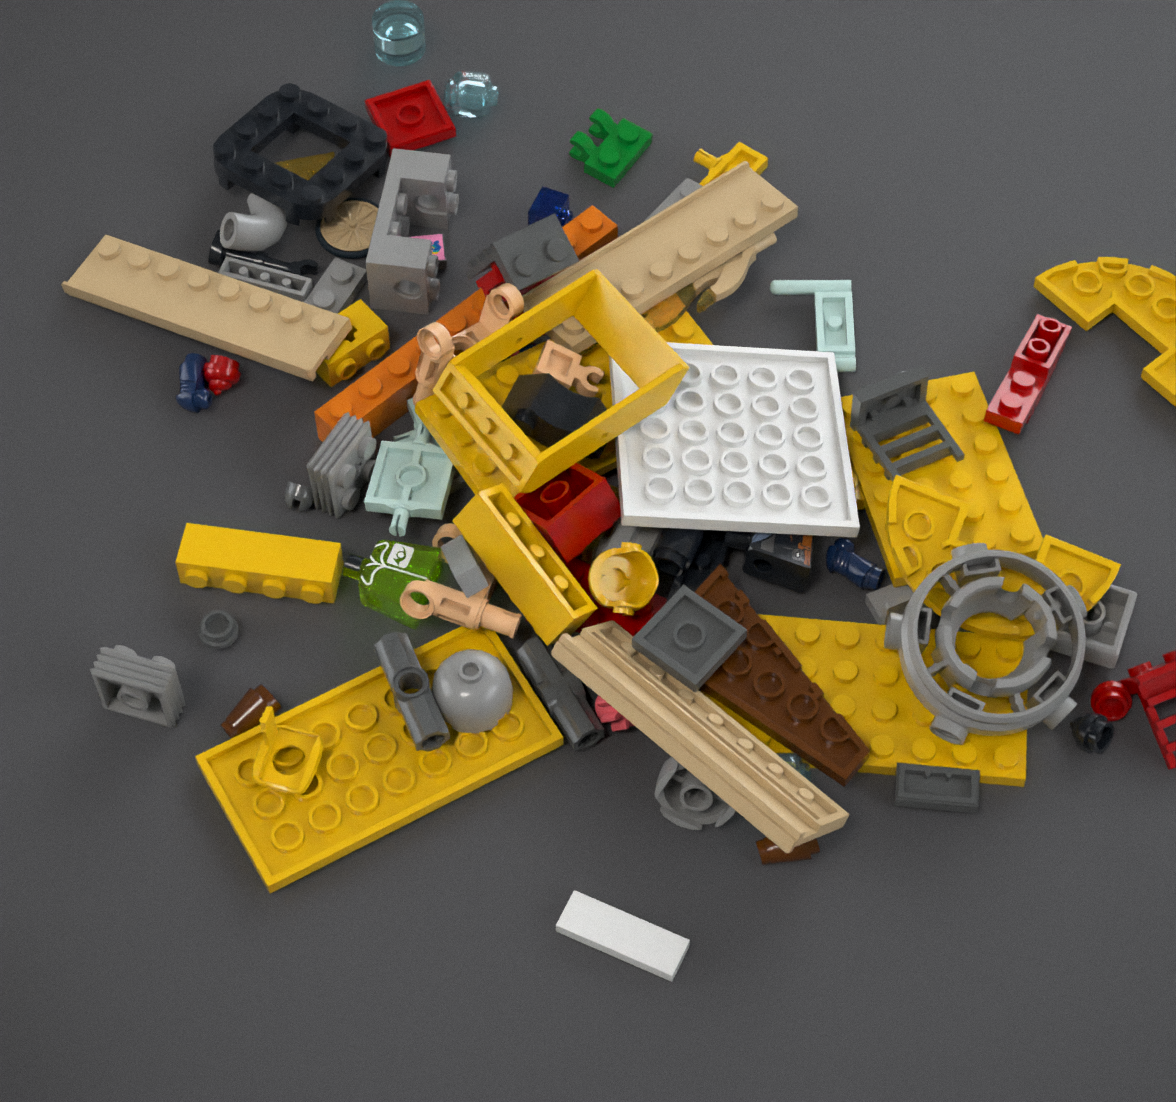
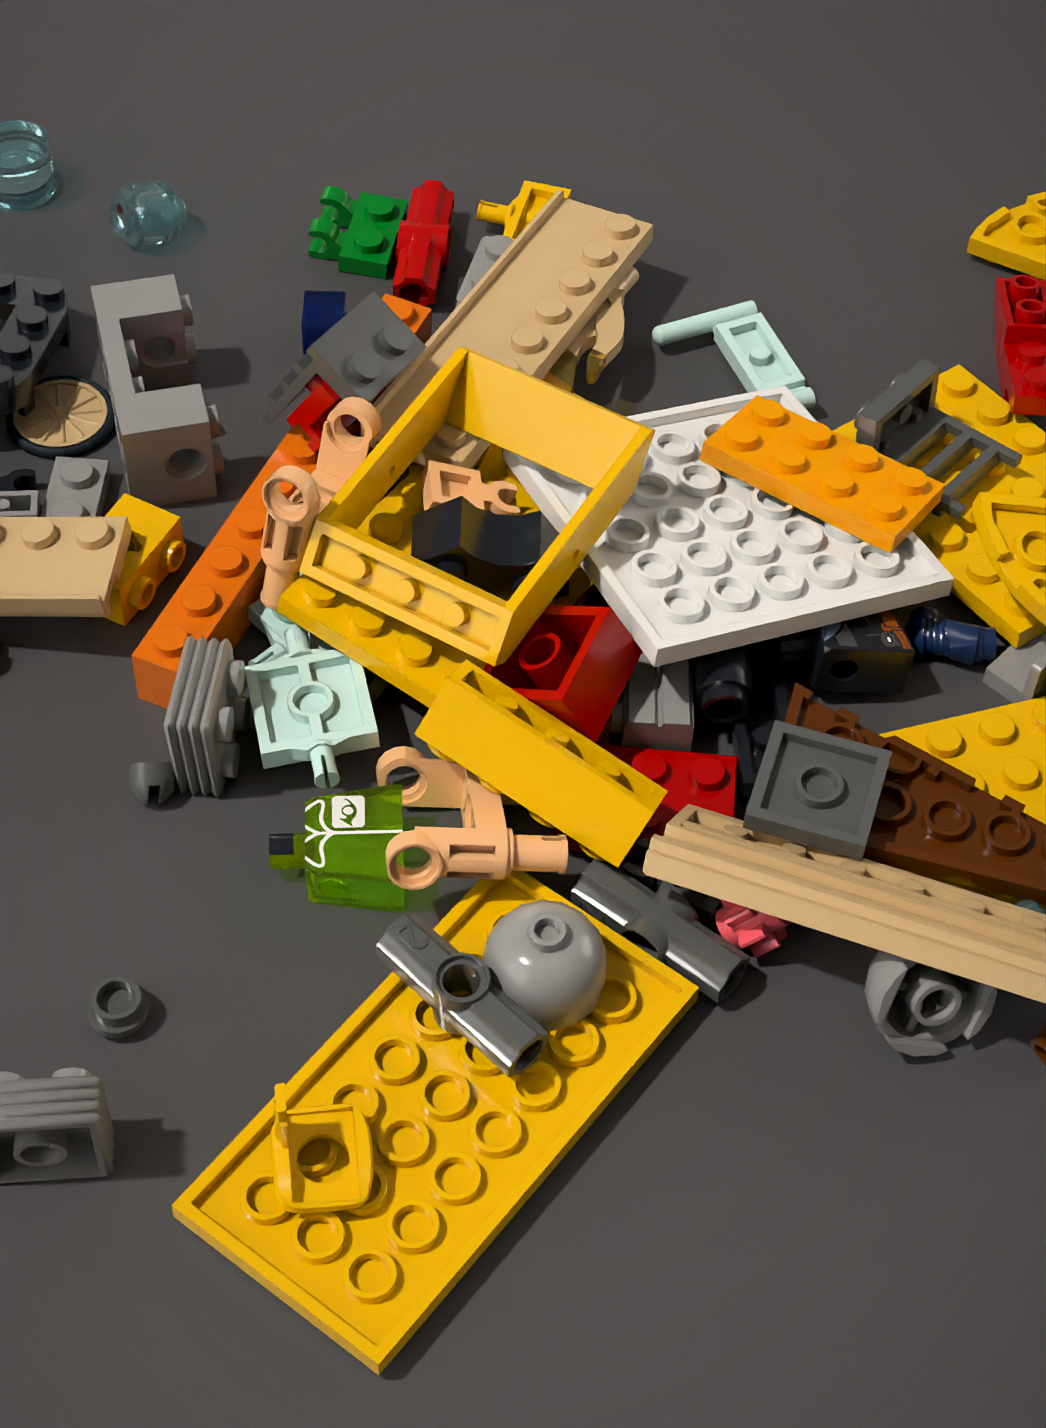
camera: 25 degrees left, 5 degrees down
(249, 711) = (226, 1108): reddish brown cone -> none
(260, 563) = (138, 891): yellow brick -> none
(411, 117) = (81, 255): red plate -> none
(464, 566) = (458, 792): light grey piece -> none
(623, 578) = (684, 740): yellow cap -> none
(623, 935) = (924, 1242): white tile -> none
(646, 171) = (424, 243): none -> red piece
(813, 426) = (823, 473): none -> light orange plate

